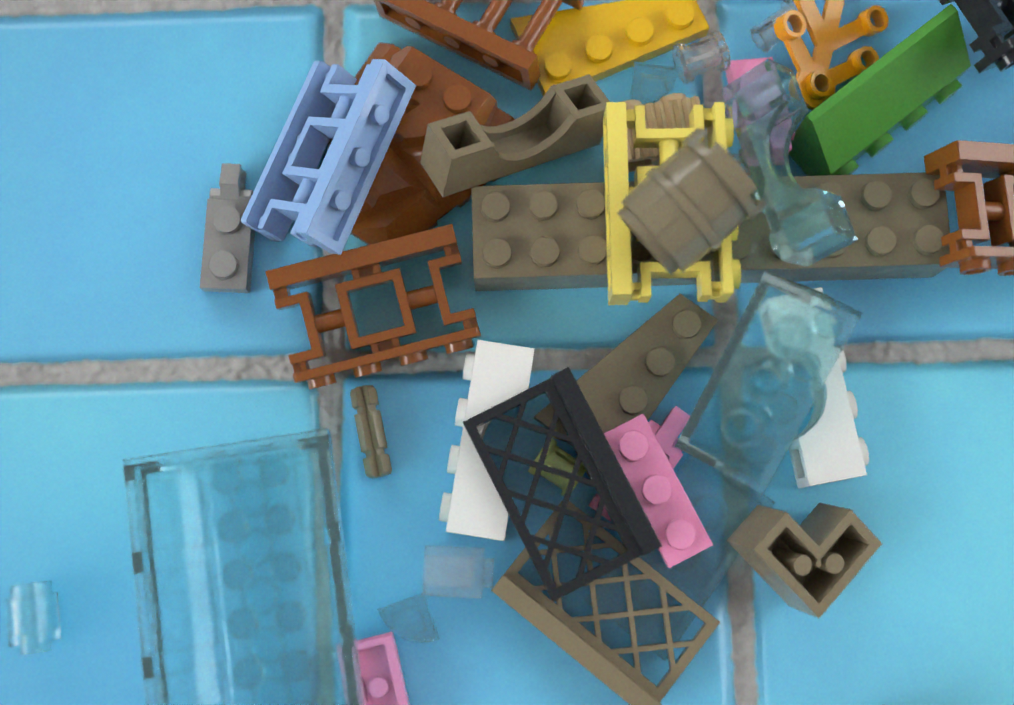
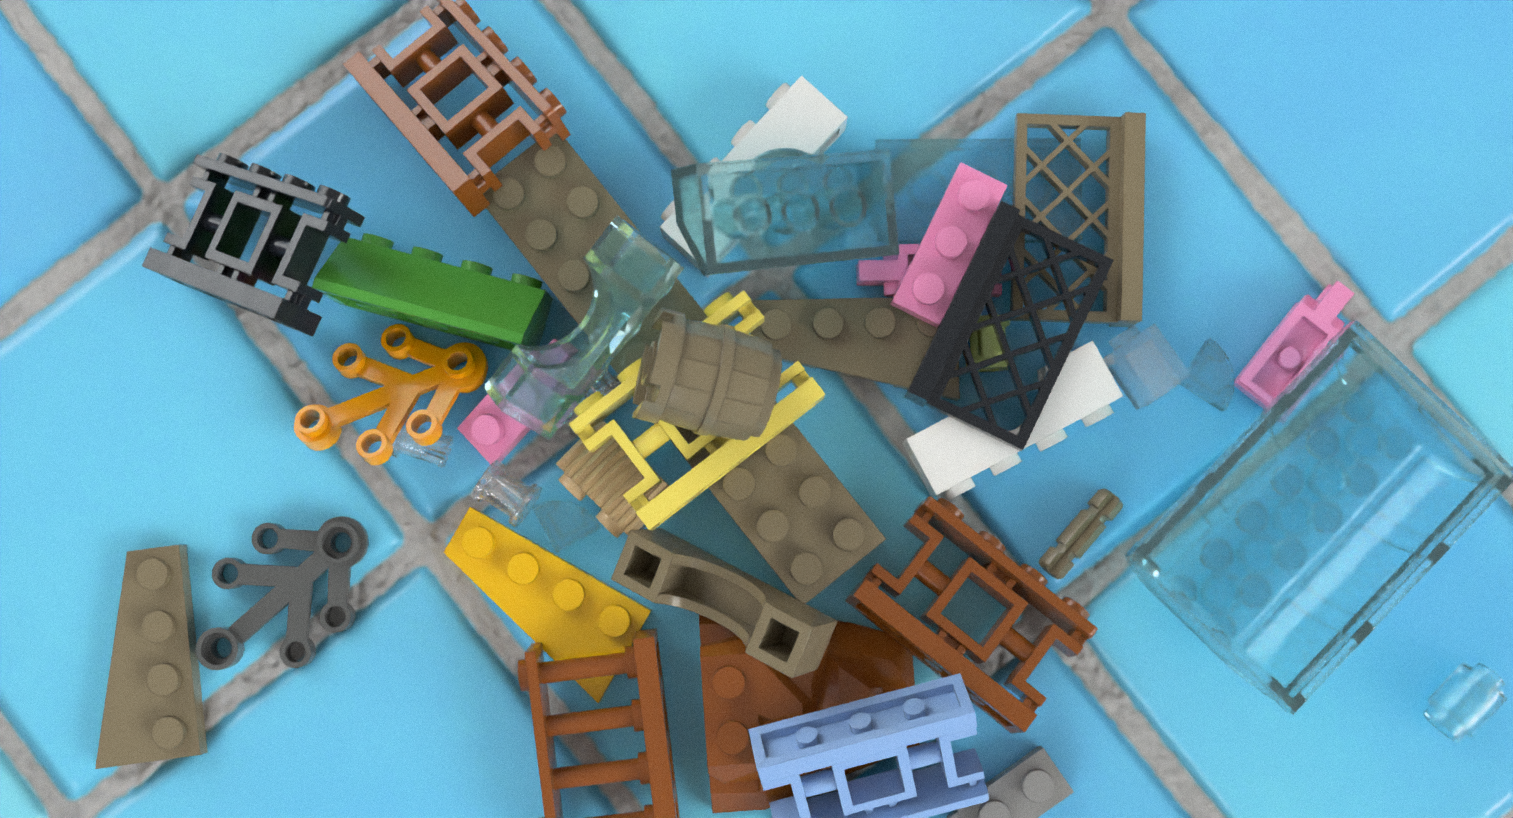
camera: 125 degrees left, 5 degrees up
(809, 560) = (908, 72): dark tan brick -> none

